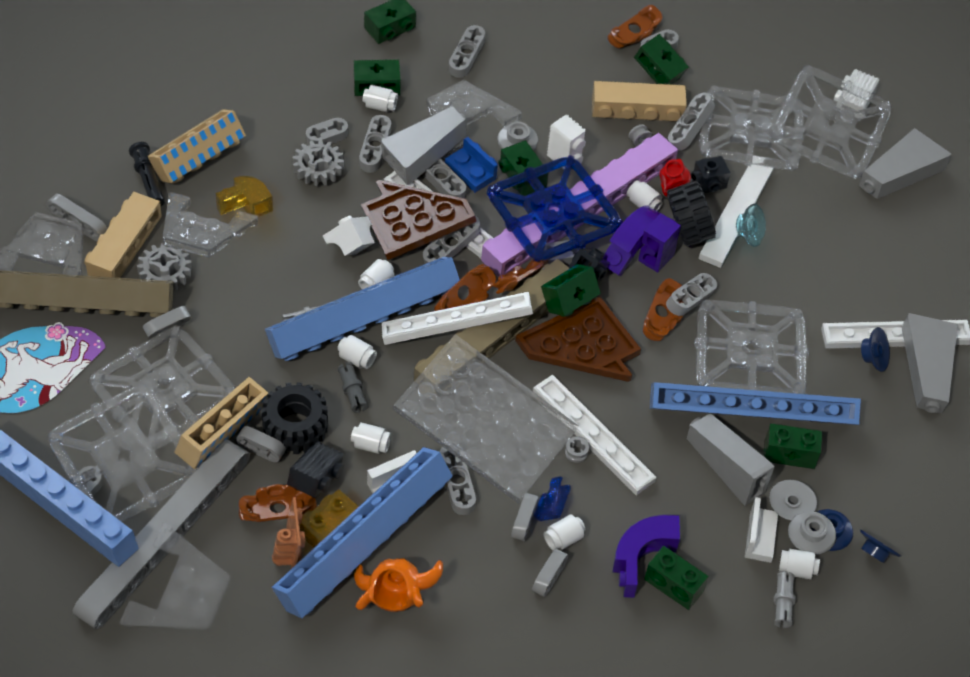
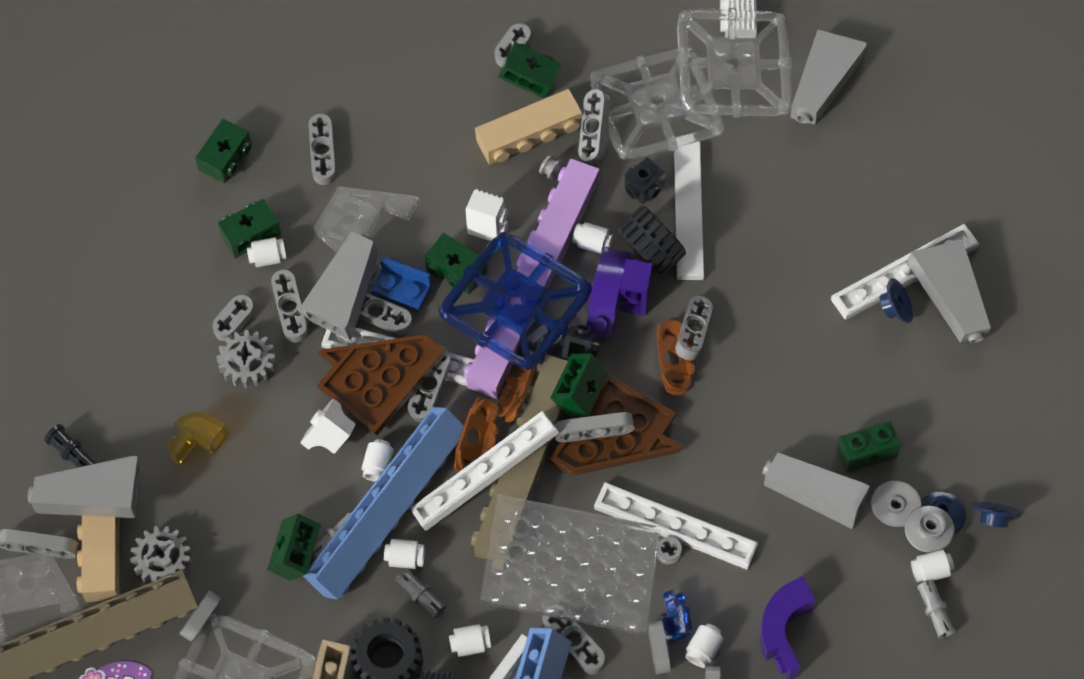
camera: 20 degrees left, 10 degrees up
(137, 191) = (90, 490): none -> light grey slope
(197, 146) = (113, 402): tan brick -> none
(197, 233) = (178, 501): clear wing -> none
(270, 305) = (294, 547): none -> dark green brick
(516, 133) = (423, 236): light grey piece -> none
(578, 331) = (594, 427): none -> light grey beam
(646, 19) = (486, 22): dark orange piece -> none
(674, 175) = (614, 207): red animal -> none
(676, 577) = (829, 639): dark green brick -> none
(741, 335) = (773, 372): clear plate -> none
(751, 225) = (712, 219): clear light blue piece -> none
(755, 403) = (812, 420): medium blue brick -> none
(761, 533) = (882, 551): white panel -> none

